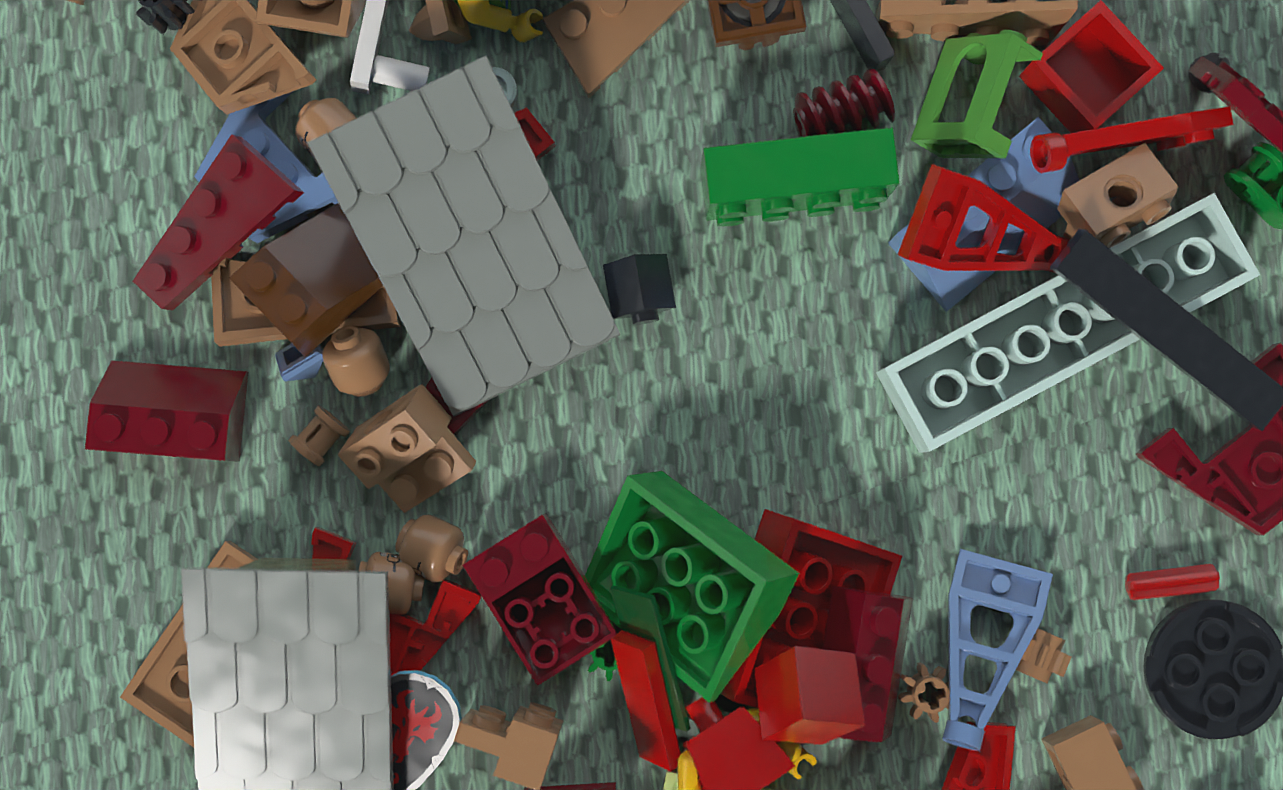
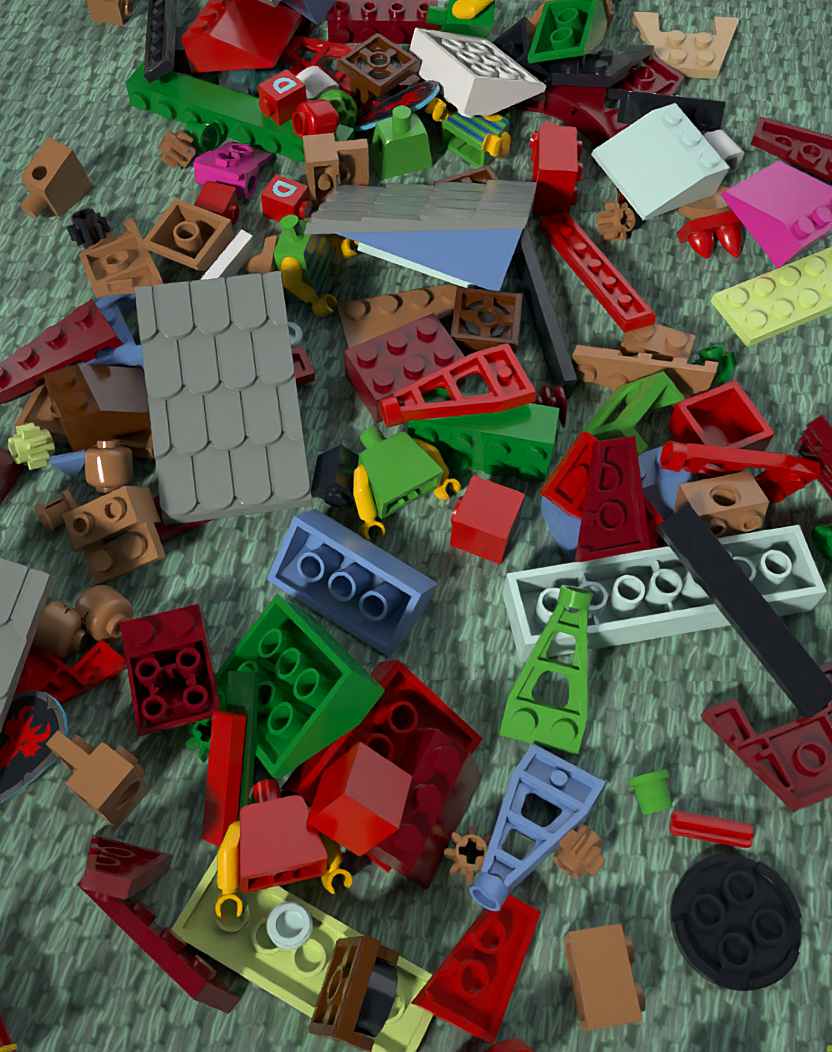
camera: 10 degrees right, 25 degrees down
(250, 365) = (31, 446): none -> yellowish green gear
(668, 96) = (399, 359): none -> dark red brick
(699, 416) = (350, 581): none -> medium blue slope
(711, 272) = (396, 474): none -> bright green torso
(813, 110) = (500, 371): none -> red plate
(835, 290) = (486, 519): none -> red head
(976, 520) = (544, 722): none -> bright green plate
(992, 244) = (613, 503): none -> dark red wing
(1101, 562) = (652, 791): none -> bright green piece

